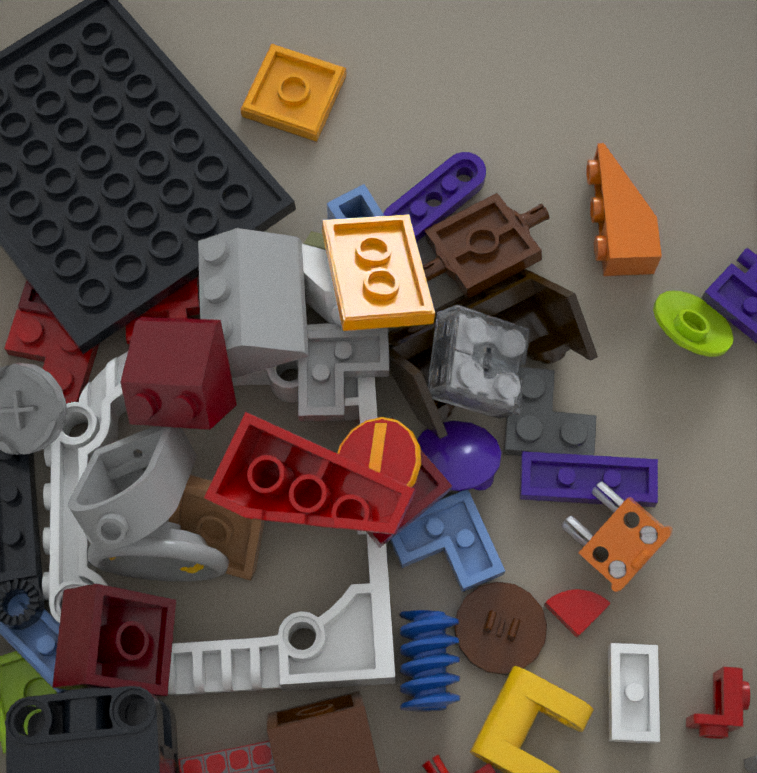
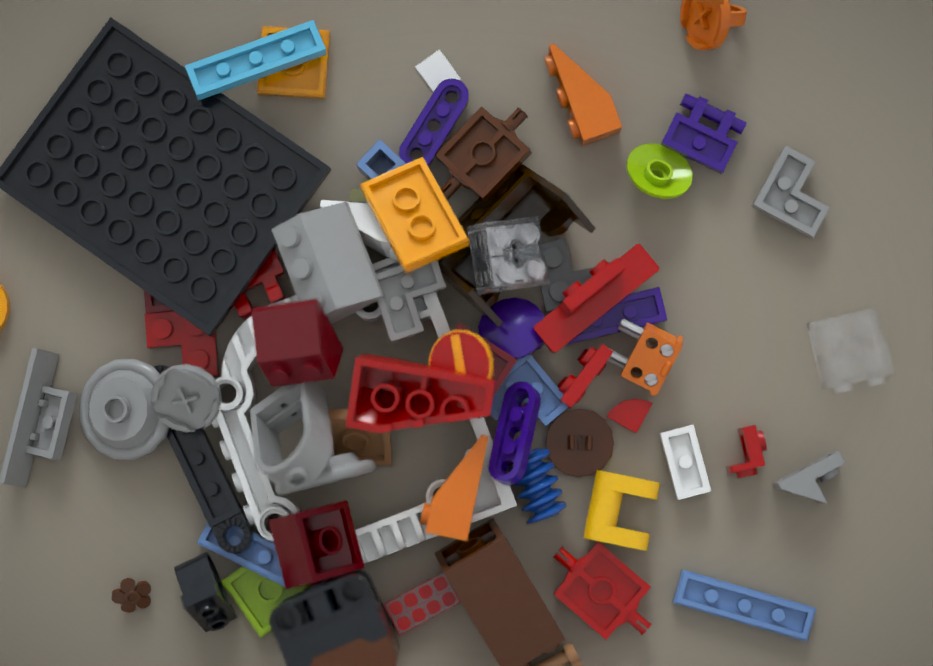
camera: 15 degrees left, 15 degrees up
(249, 66) = (255, 60): none -> medium azure plate
(316, 638) = (455, 500): none -> orange slope
(422, 564) = (511, 420): none -> dark purple plate
(454, 142) = (436, 69): none -> white sticker
(543, 528) = (594, 363): none -> red plate
(573, 441) = (594, 298): none -> red bracket

